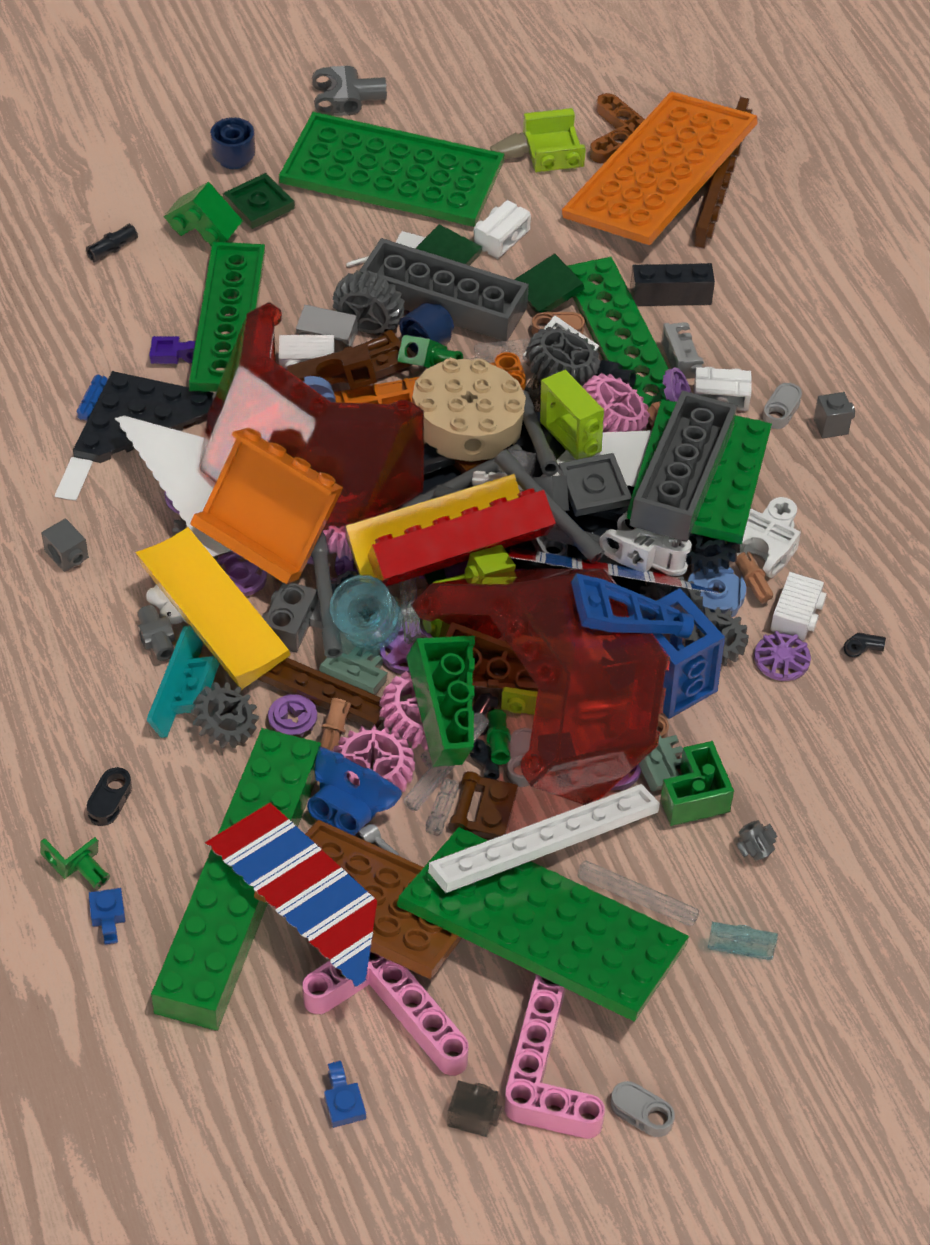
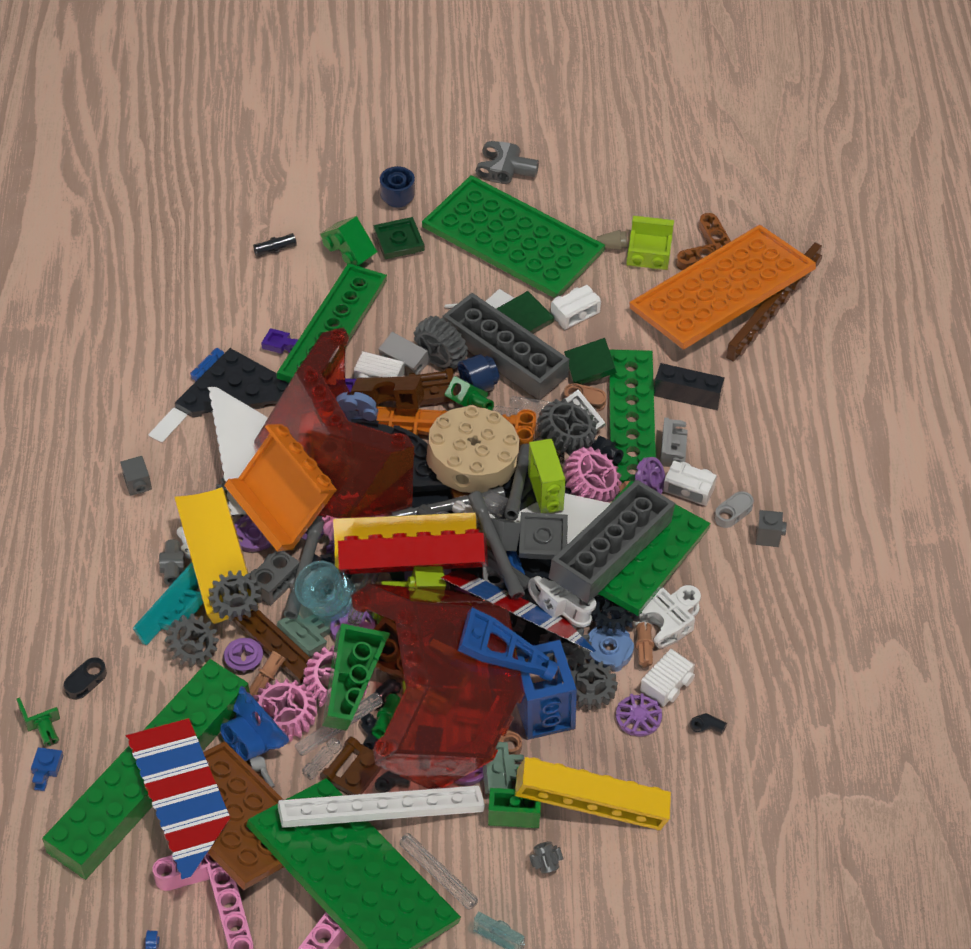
camera: 20 degrees right, 0 degrees up
(263, 645) = (235, 595): none -> dark grey gear
(534, 806) = (389, 780): none -> black arm
(781, 752) = (593, 793): none -> yellow brick

